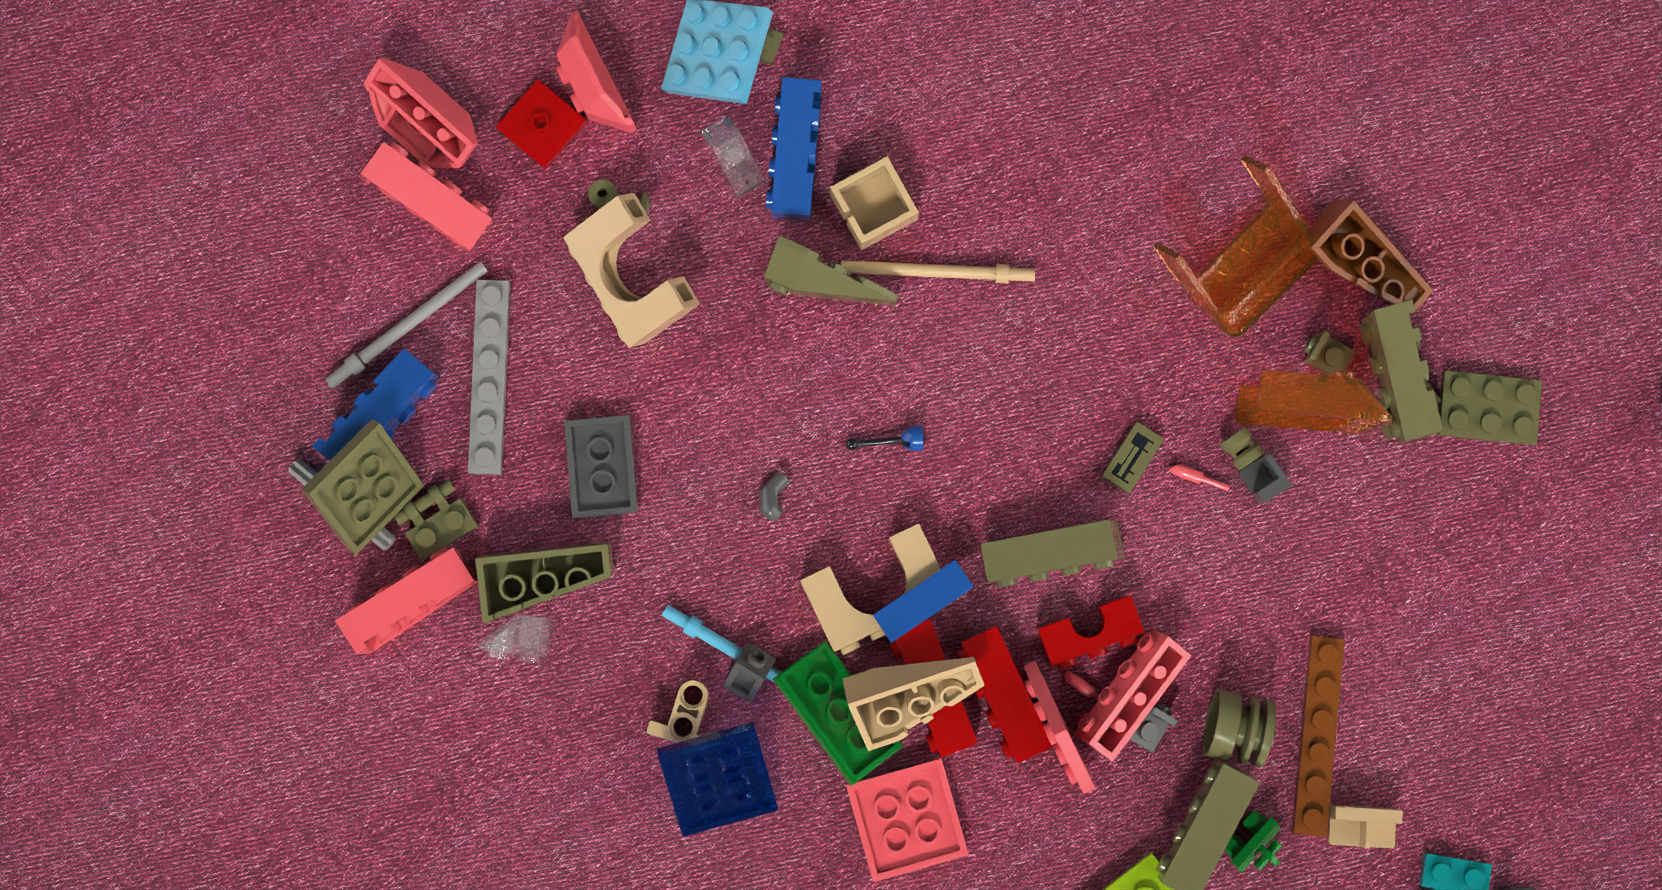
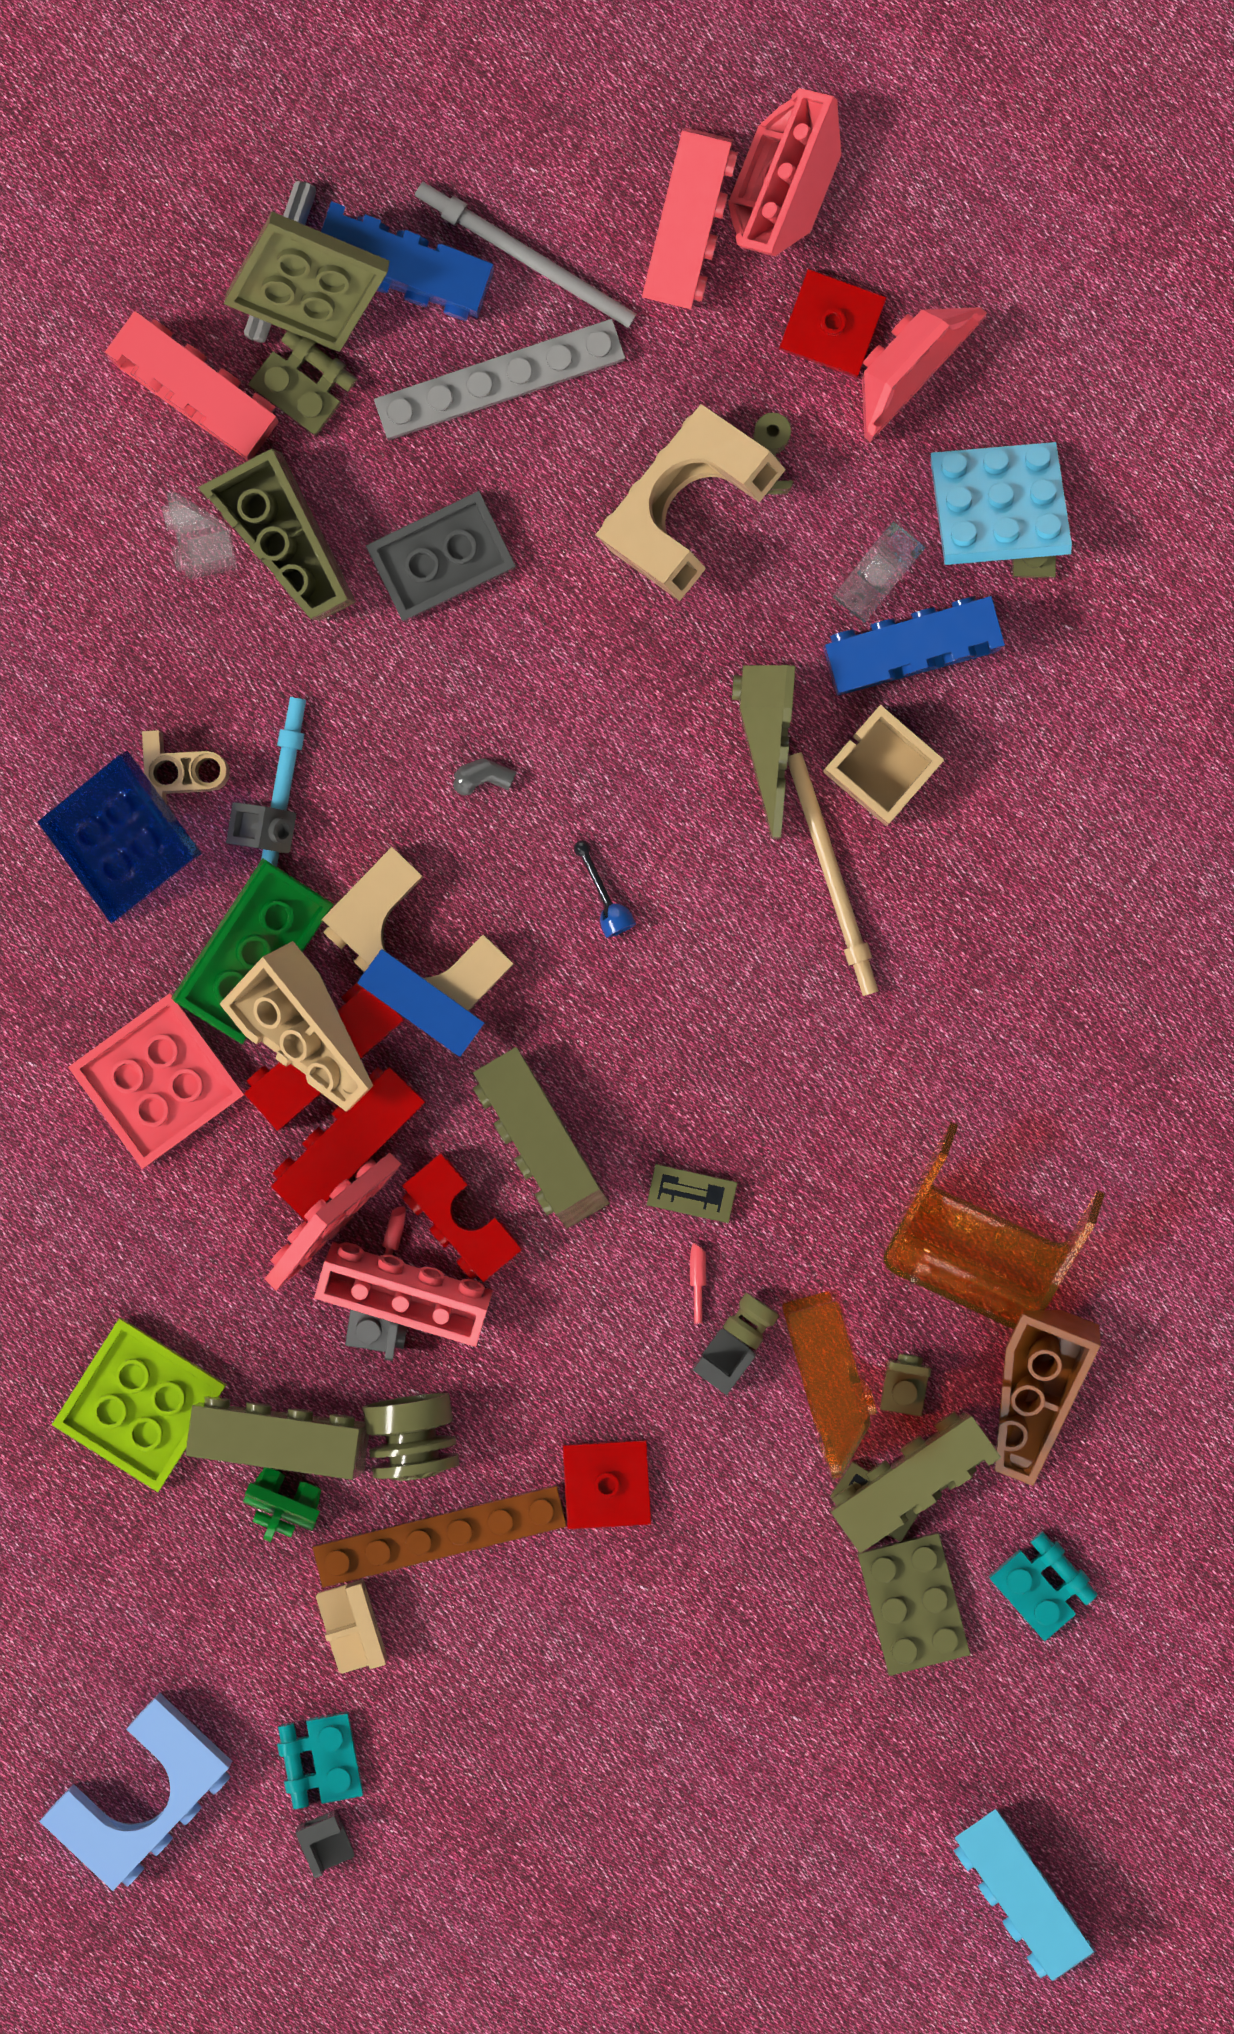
camera: 65 degrees right, 5 degrees up
(1323, 598) = (606, 1484): none -> red plate
(1511, 320) = (1033, 1595): none -> teal plate

